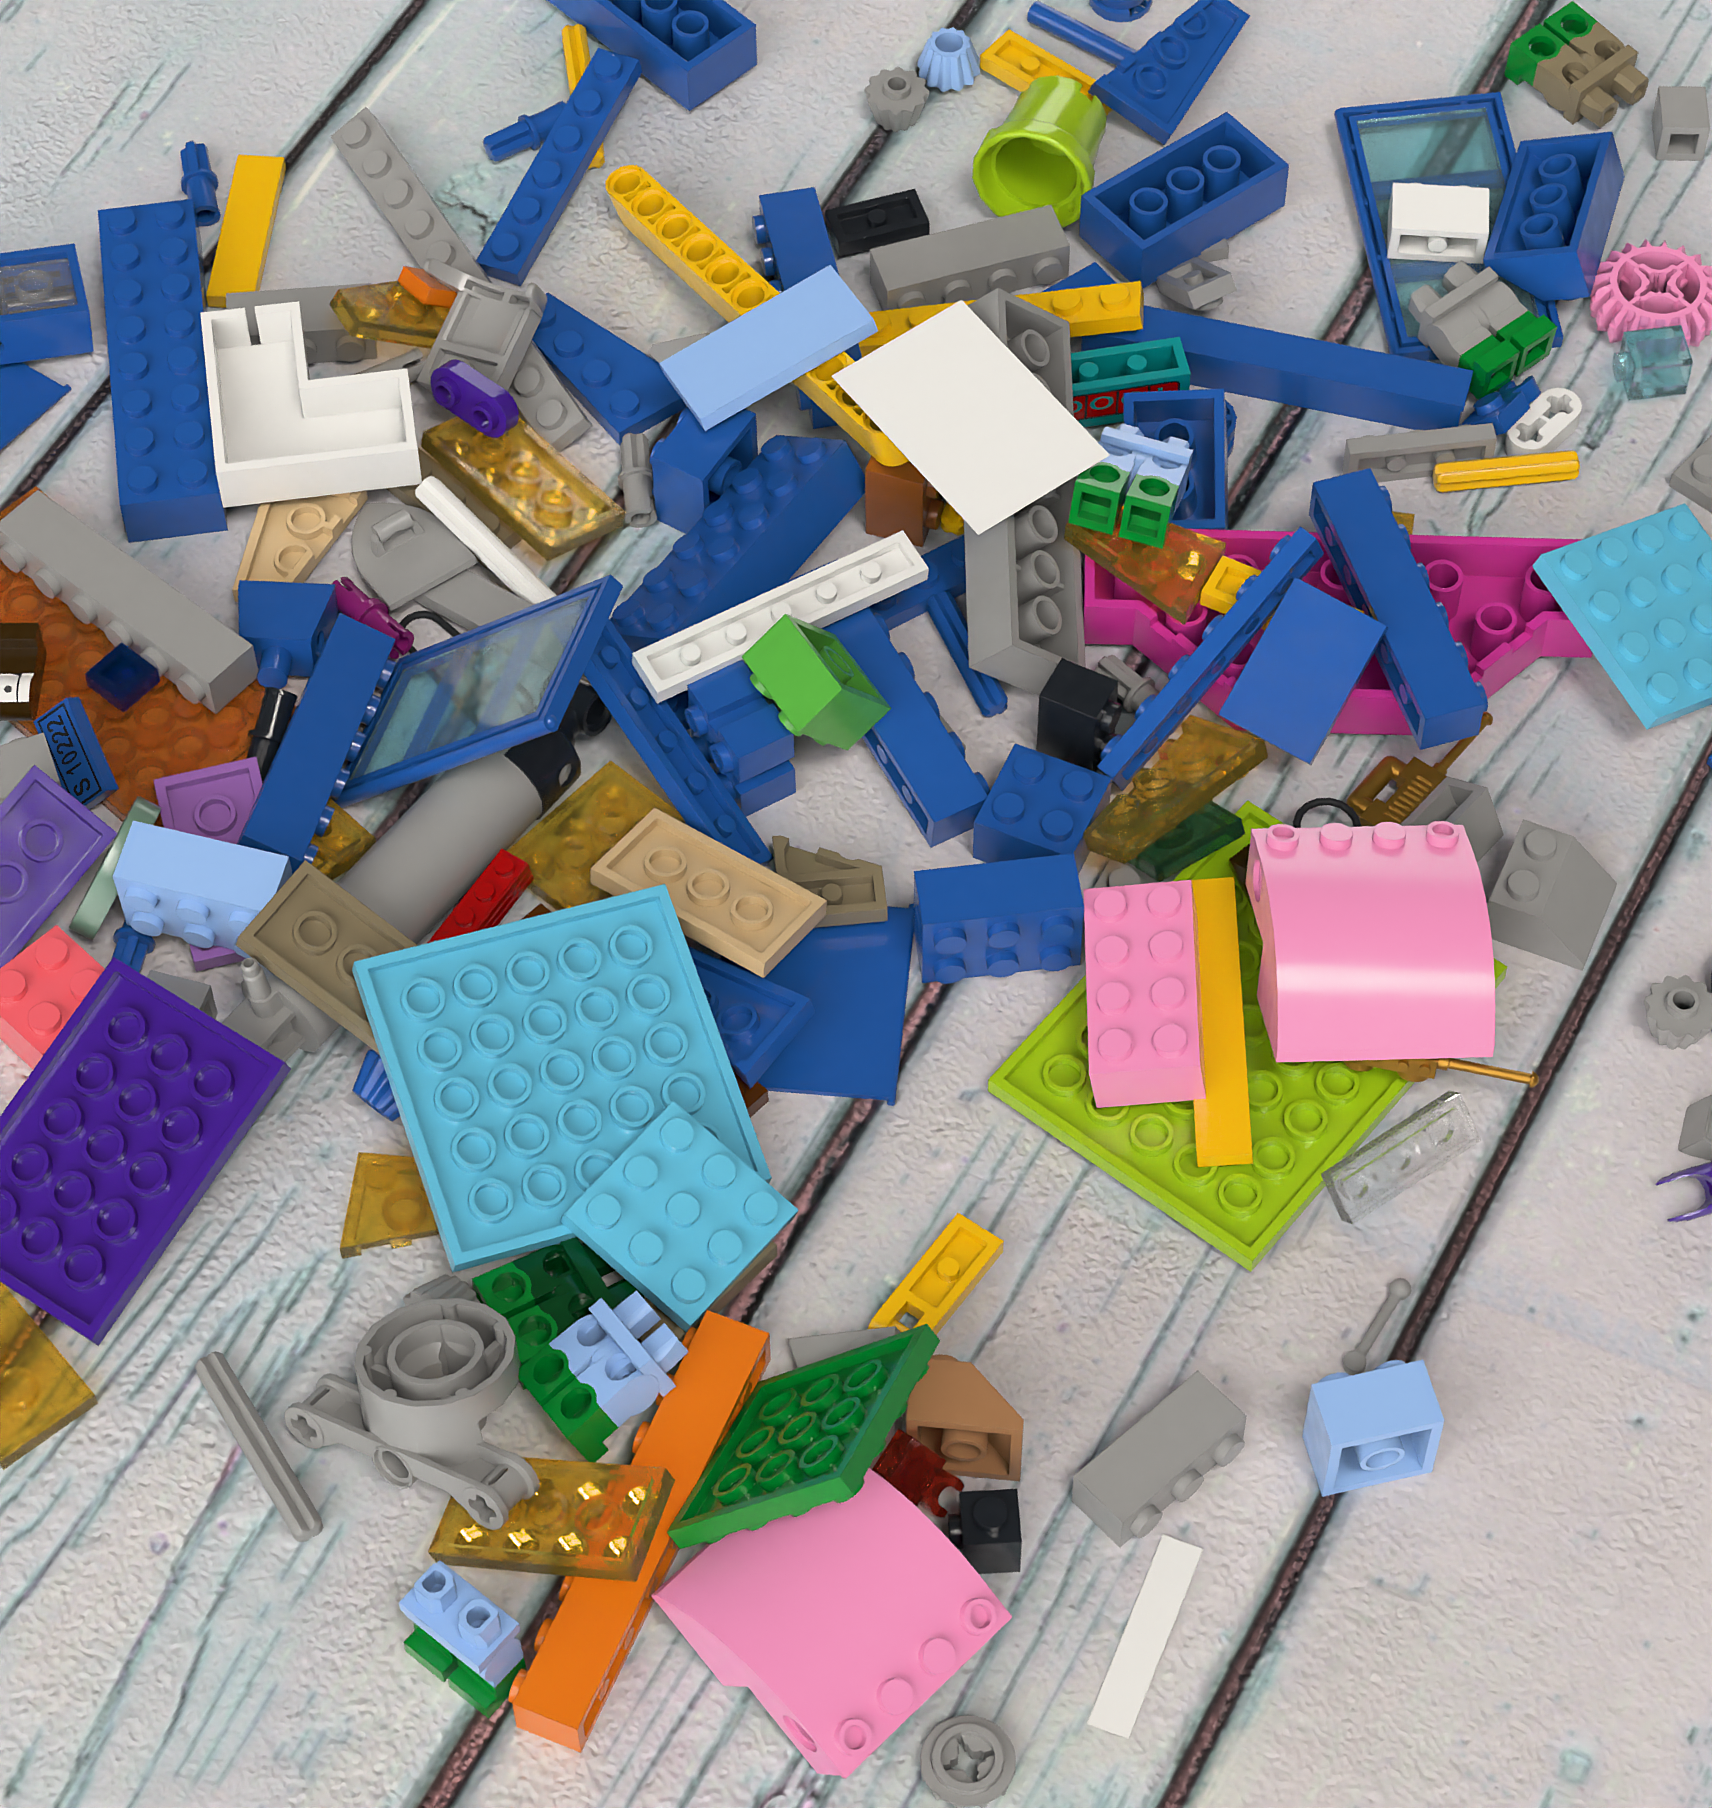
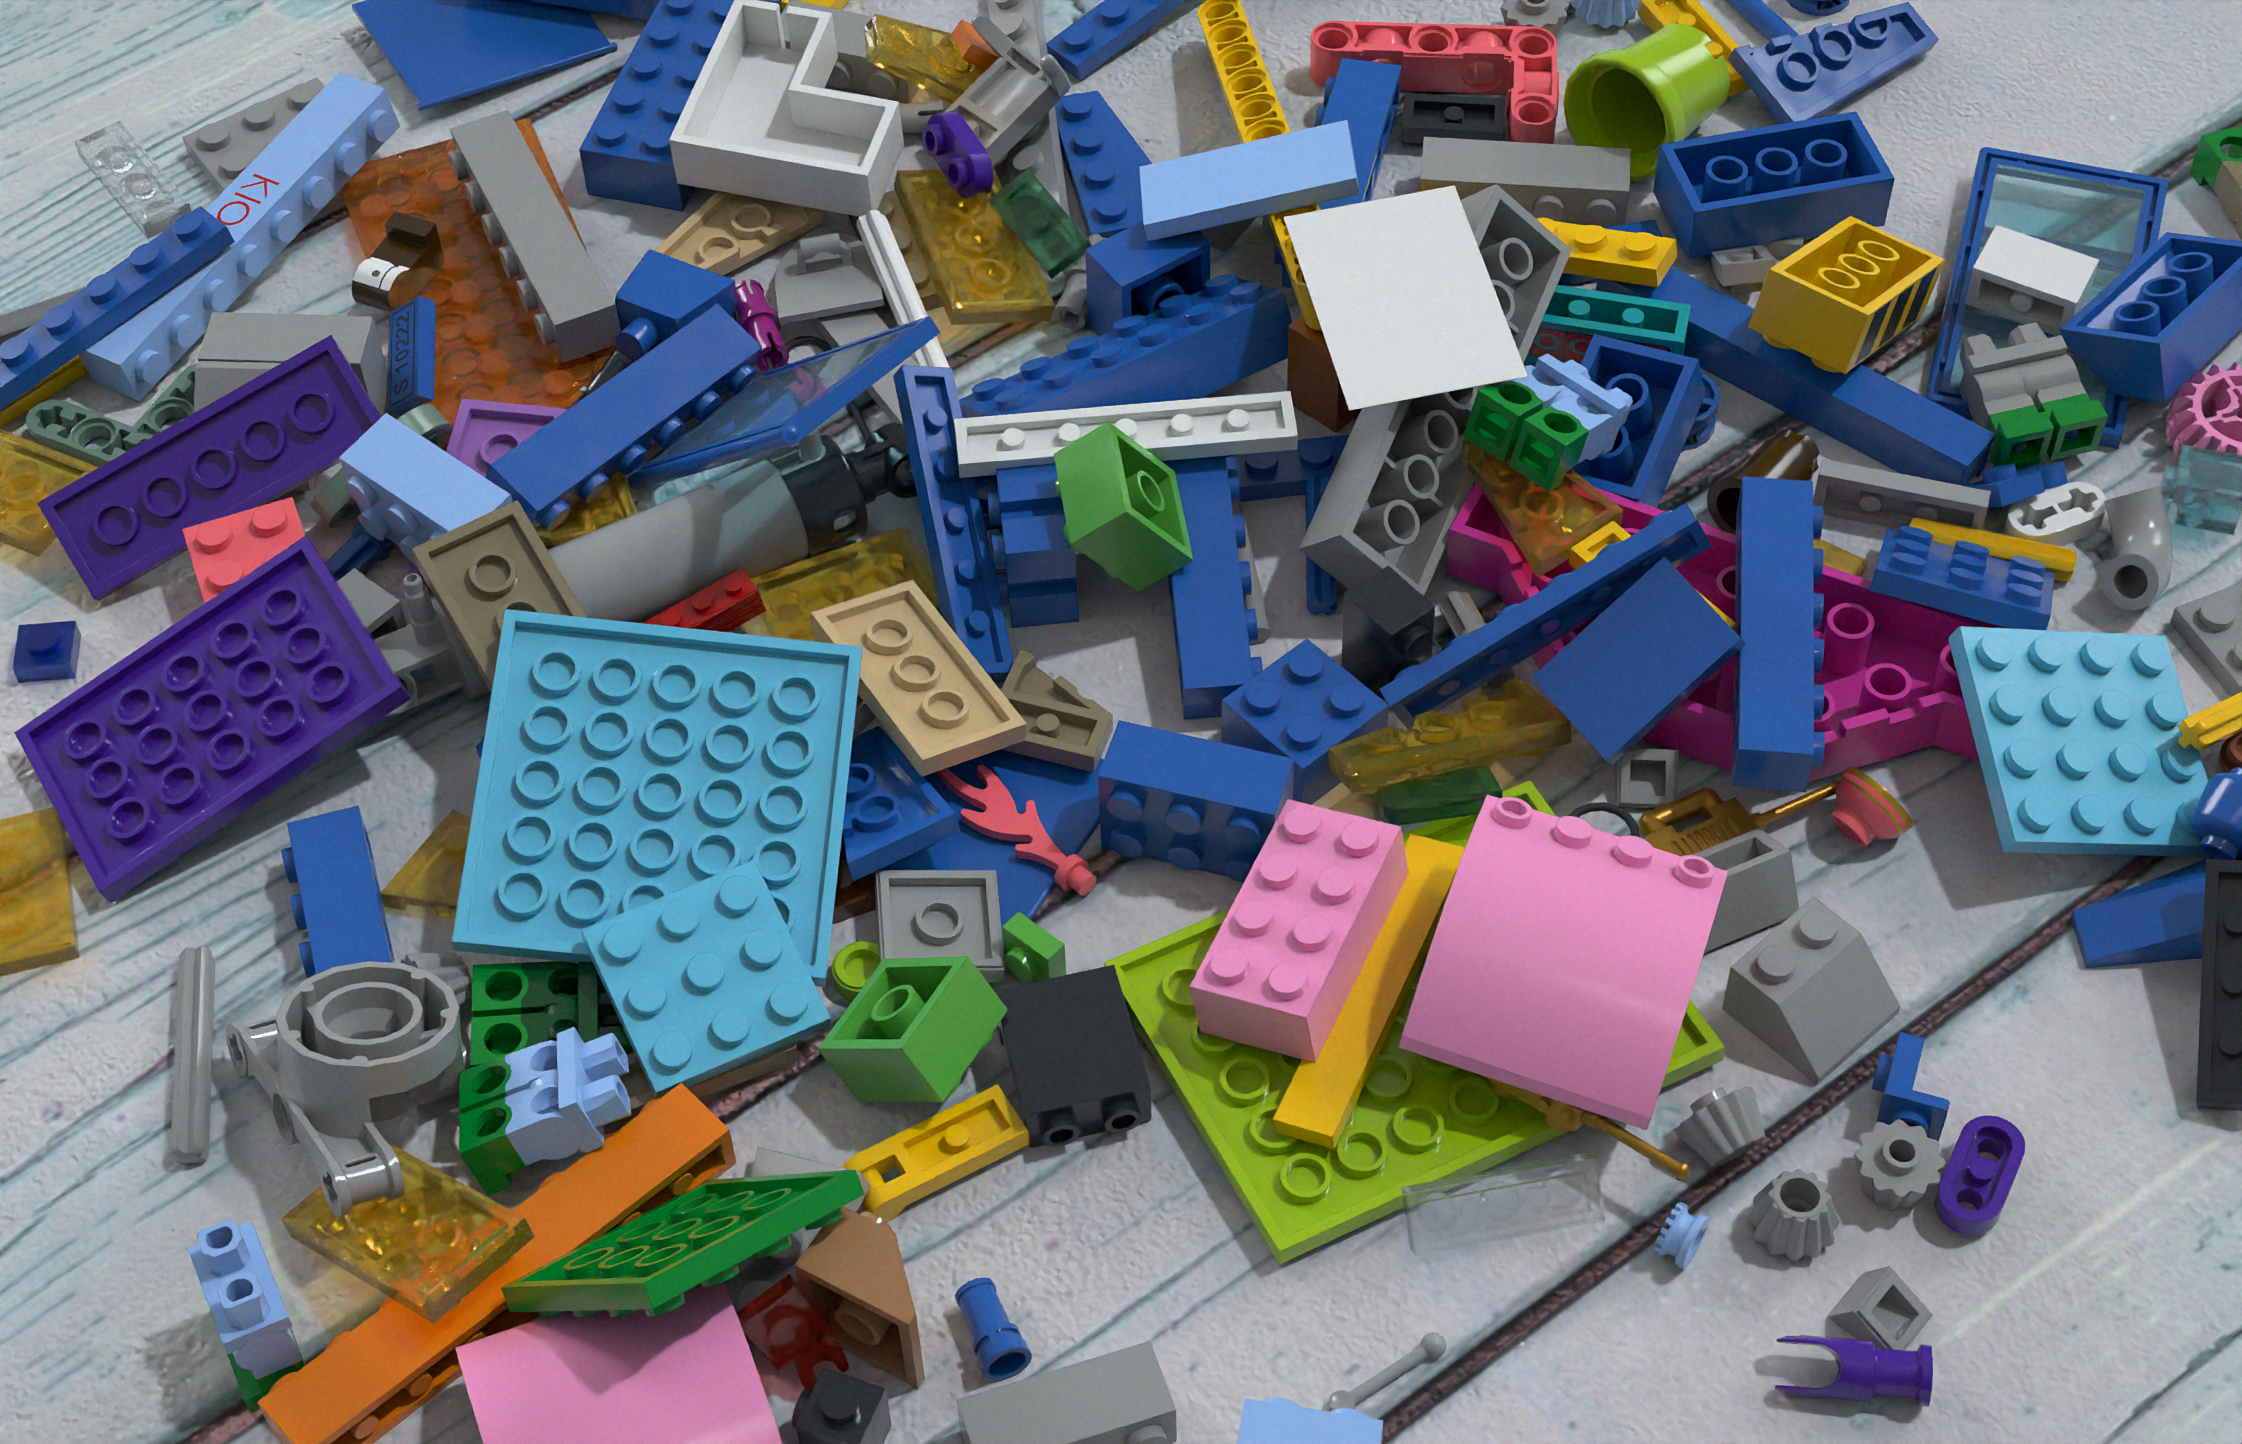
camera: 25 degrees right, 5 degrees down
(122, 677) = (492, 300): clear blue plate -> none
(312, 1271) = (337, 892): none -> blue brick
(578, 440) = (1040, 224): none -> clear green plate
(789, 1160) = (854, 967): none -> lime tile
(834, 991) = (1006, 824): none -> coral piece
(834, 1099) = (940, 917): none -> light grey plate
(853, 162) = (1455, 60): none -> coral beam
(873, 1193) = (913, 1029): none -> bright green brick
(925, 1093) = (1032, 951): none -> bright green plate
(1006, 1164) = (1074, 1057): none -> black panel
(1068, 1419) = (996, 1341): none -> blue pin
(1301, 286) = (1845, 294): none -> yellow brick
(1308, 458) = (1780, 457): none -> dark brown plant
(1335, 766) = (1646, 778): none -> light grey slope
(1508, 509) = (1964, 580): none -> blue plate
(1520, 730) = (1867, 809): none -> coral piece
(1536, 1030) = (1723, 1125): none -> light grey piece
(1548, 1131) = (1683, 1236): none -> light blue bush
(1621, 1081) = (1794, 1215): none -> light grey piece
(1624, 432) = (2140, 549): none -> light grey cylinder
(1649, 948) = (1896, 1079): none -> blue bracket

